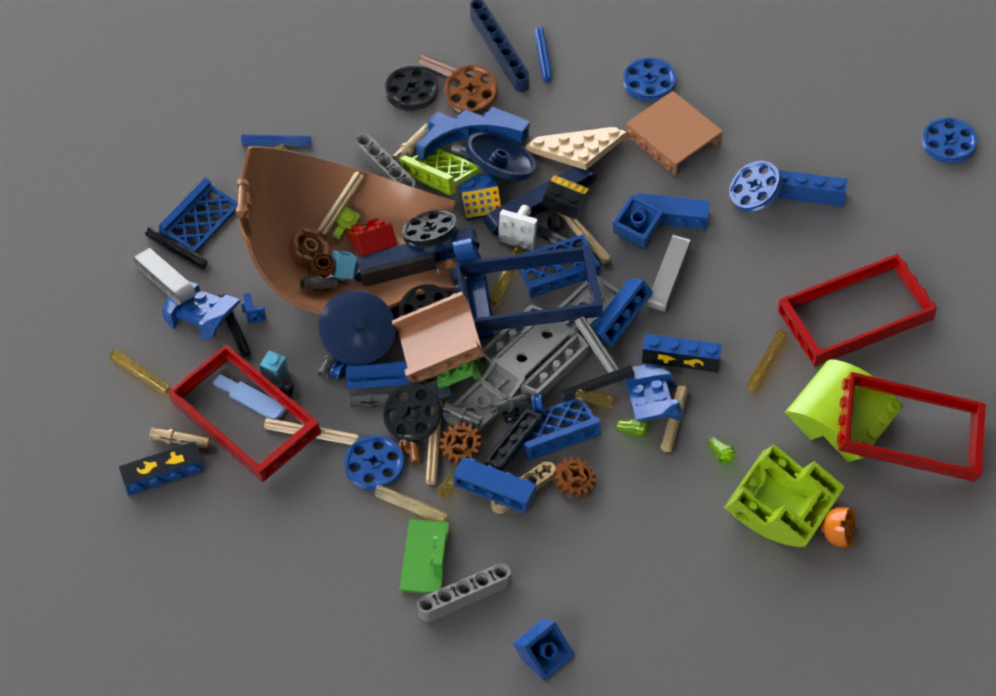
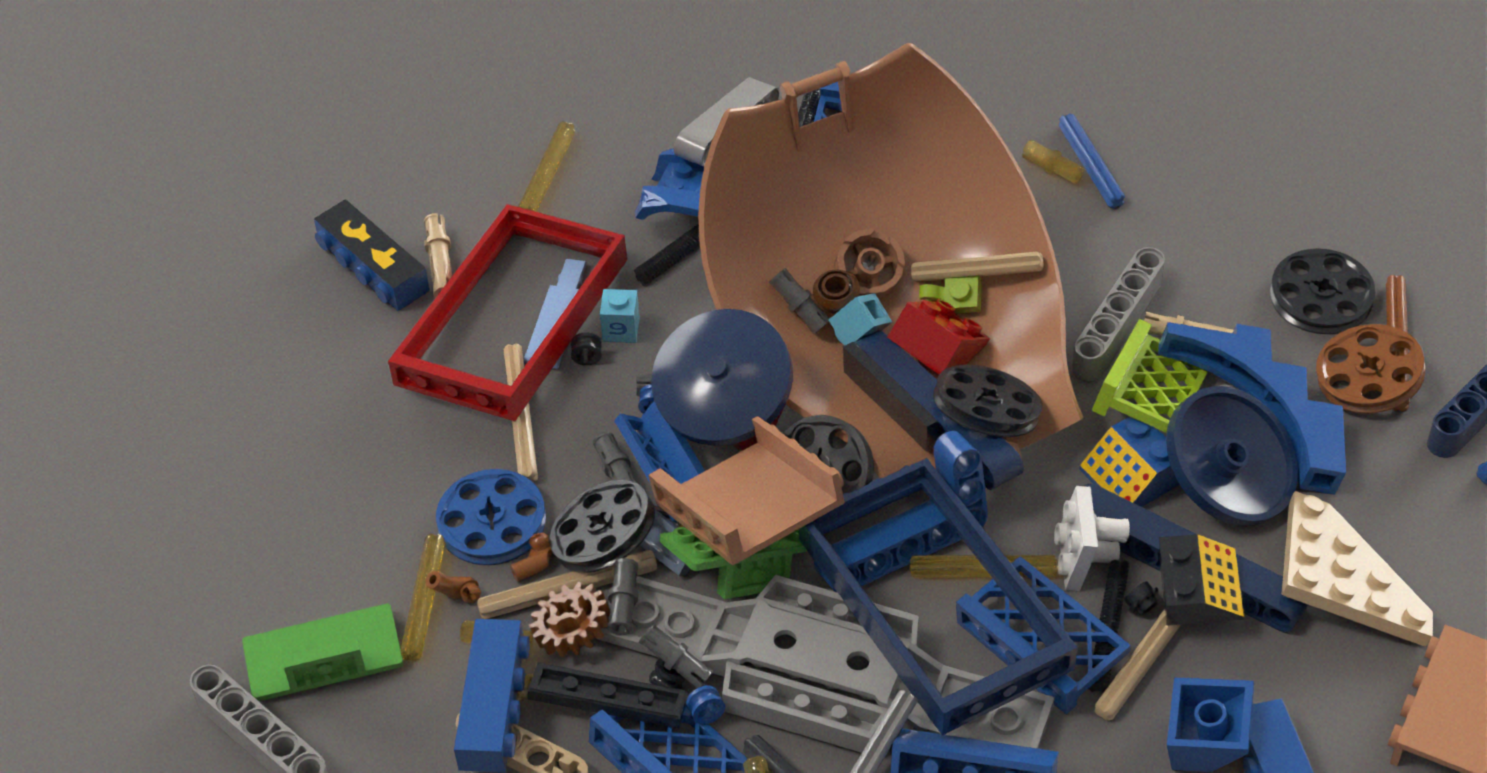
camera: 70 degrees right, 5 degrees down
(413, 486) = (454, 586): none -> dark orange arm

